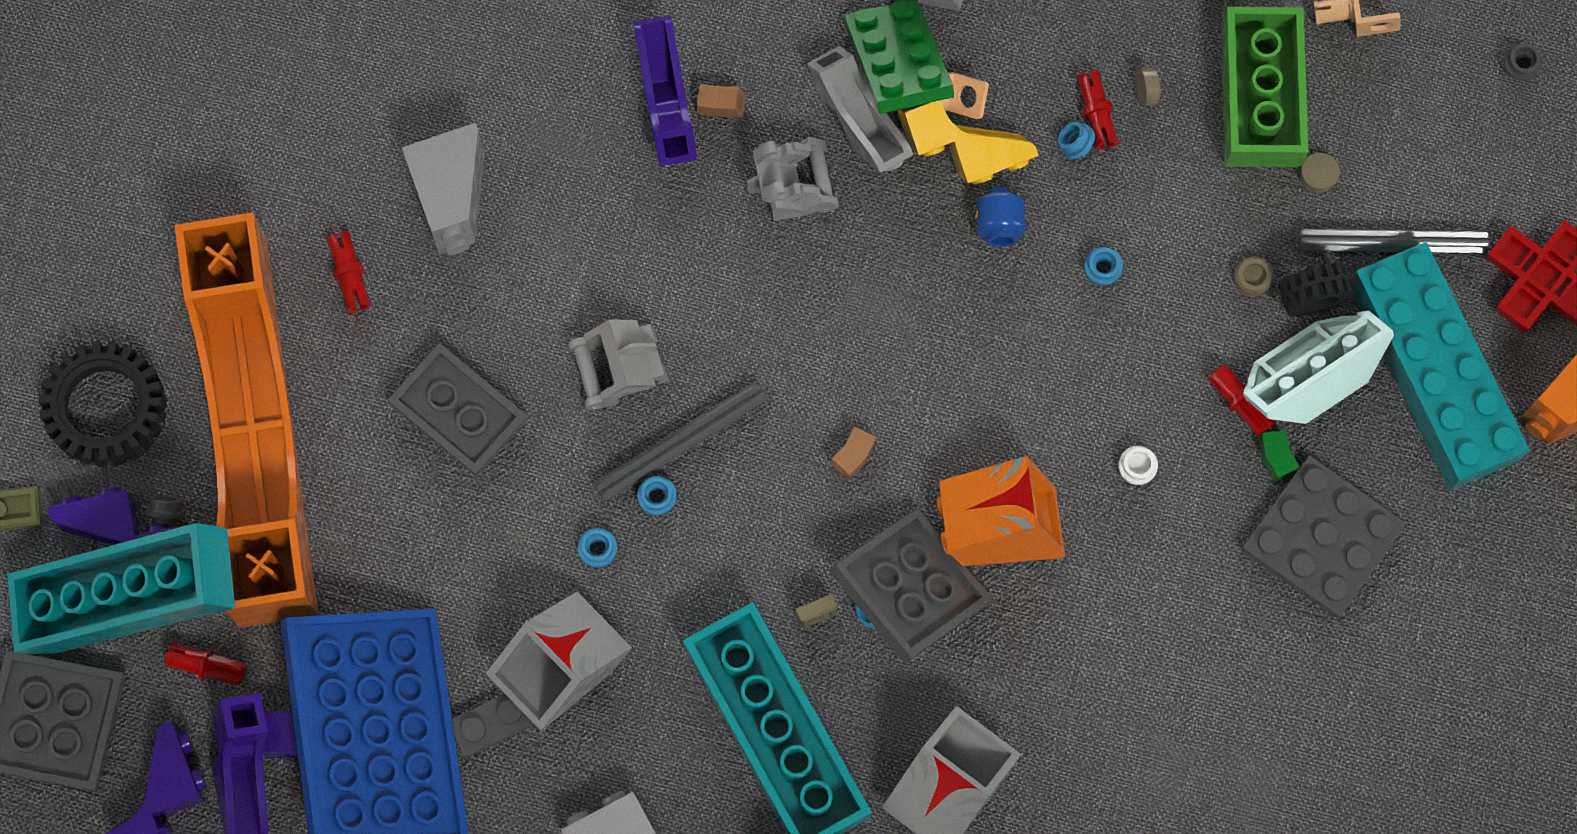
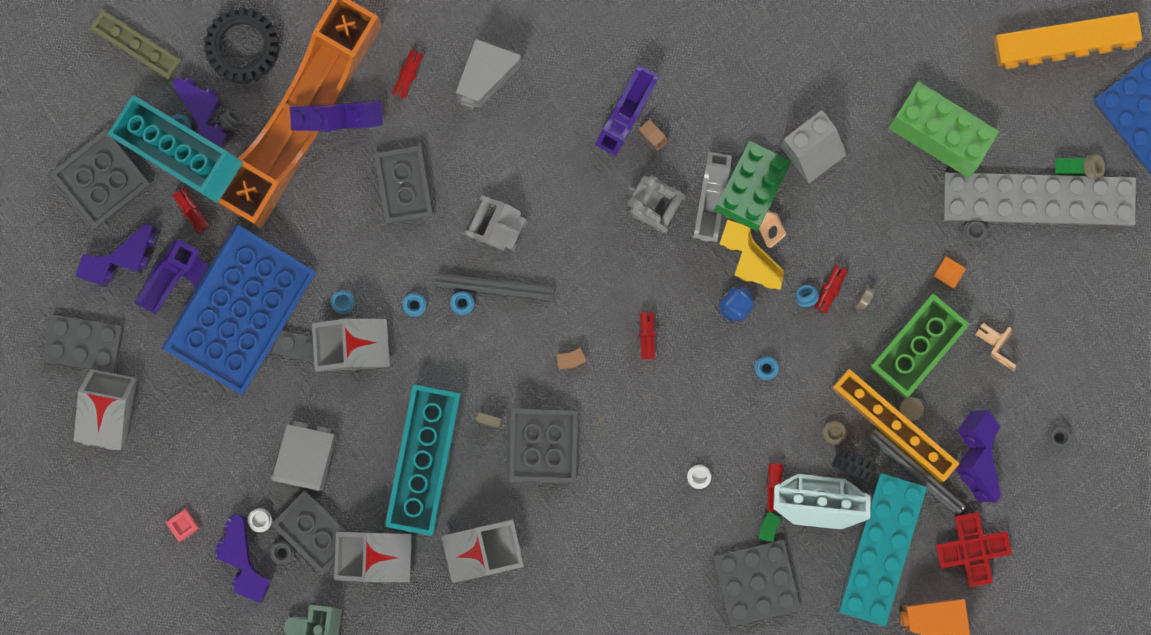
camera: 45 degrees right, 10 degrees up
(298, 391) = (336, 116): none -> dark purple arch
(502, 619) = (342, 302): none -> dark azure plate
(923, 345) = (647, 335): none -> red axle
(1000, 515) = (611, 448): orange slope -> none
(1320, 203) = (895, 425): none -> light orange brick
(1458, 166) = (977, 464): none -> dark purple arch

